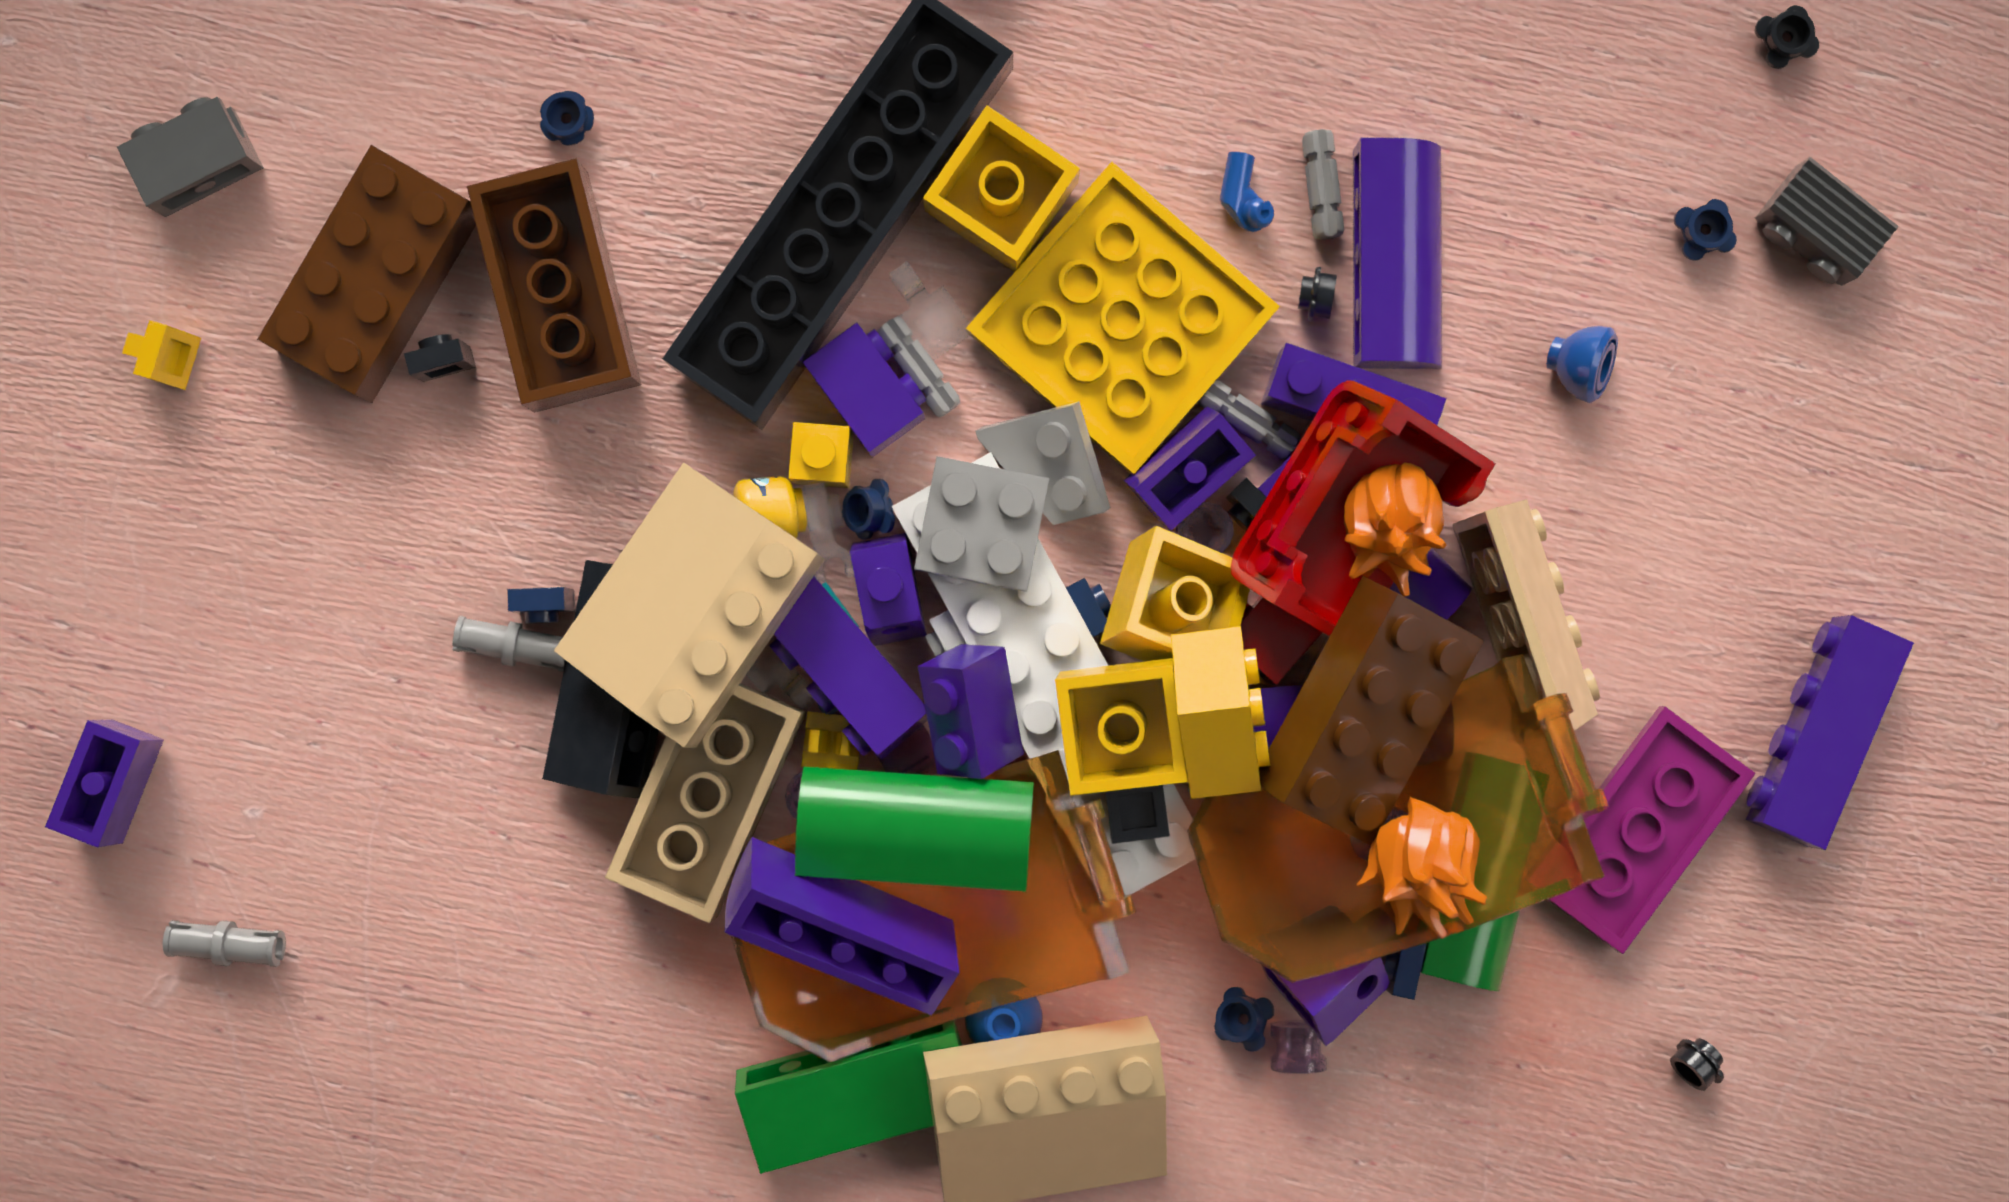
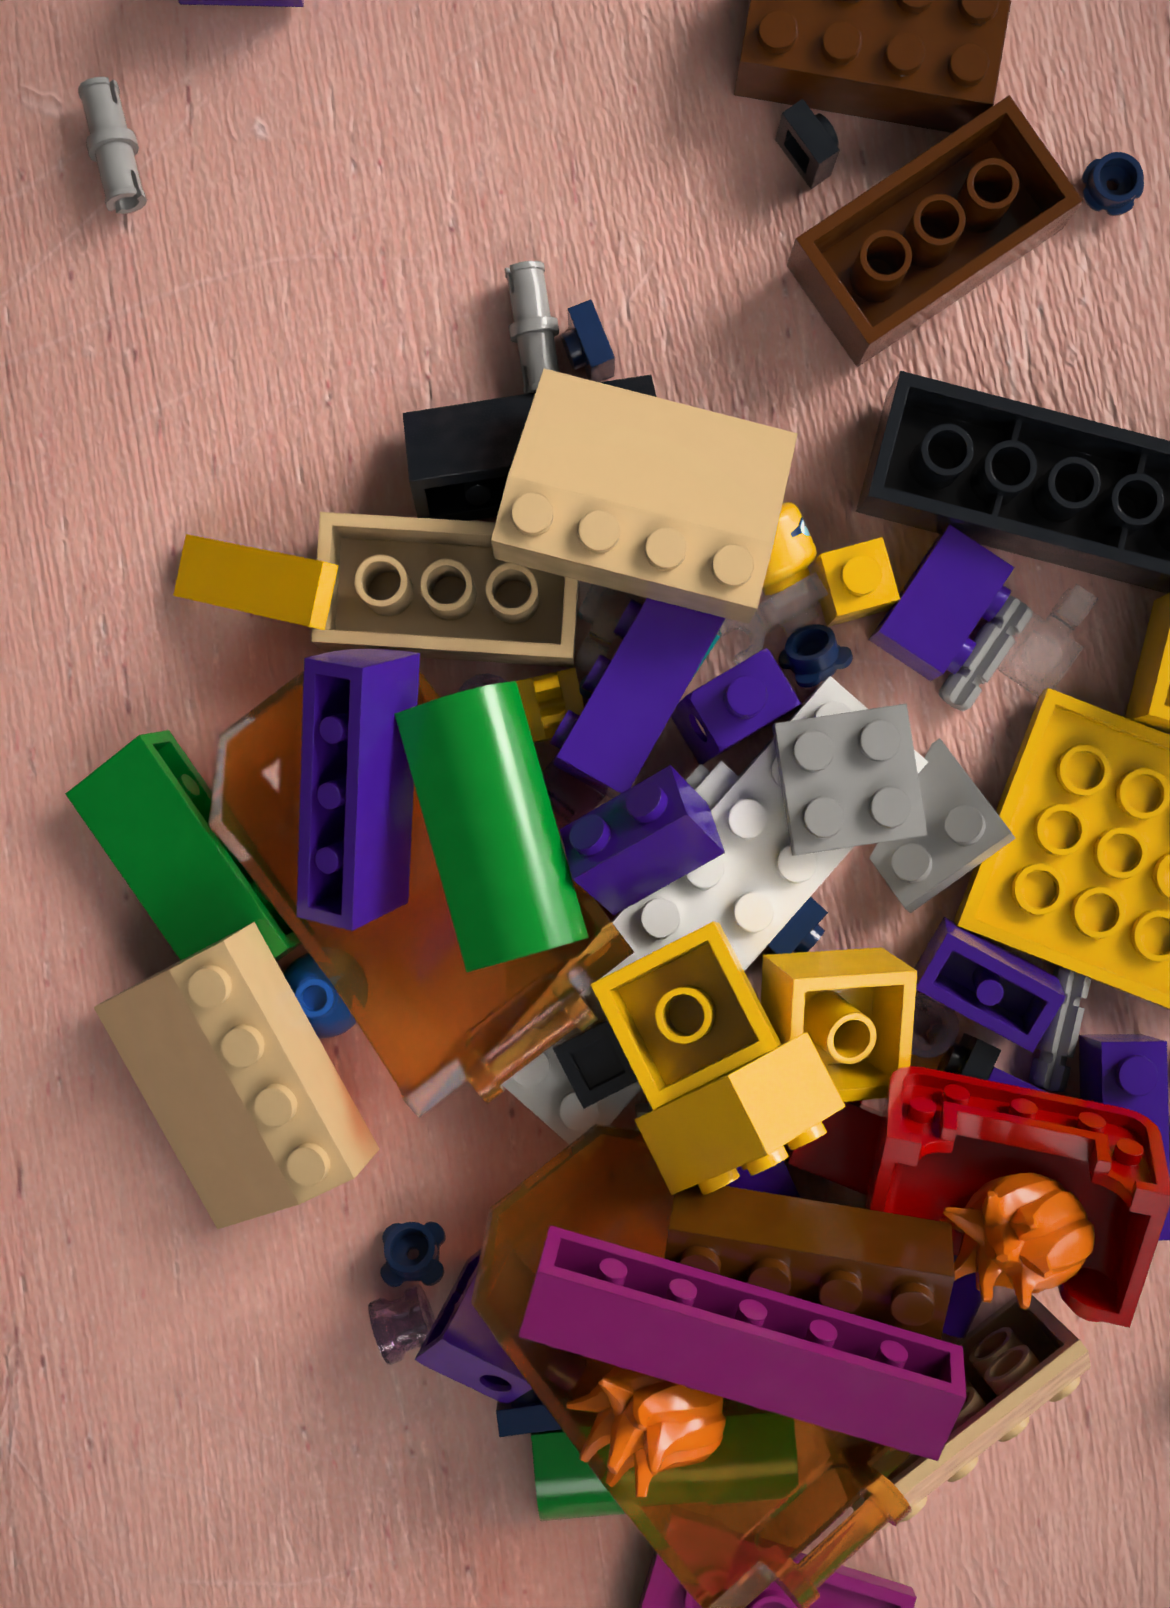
camera: 70 degrees right, 0 degrees up
(641, 952) = (256, 581): none -> yellow tile
(1391, 777) = (745, 1343): none -> magenta brick

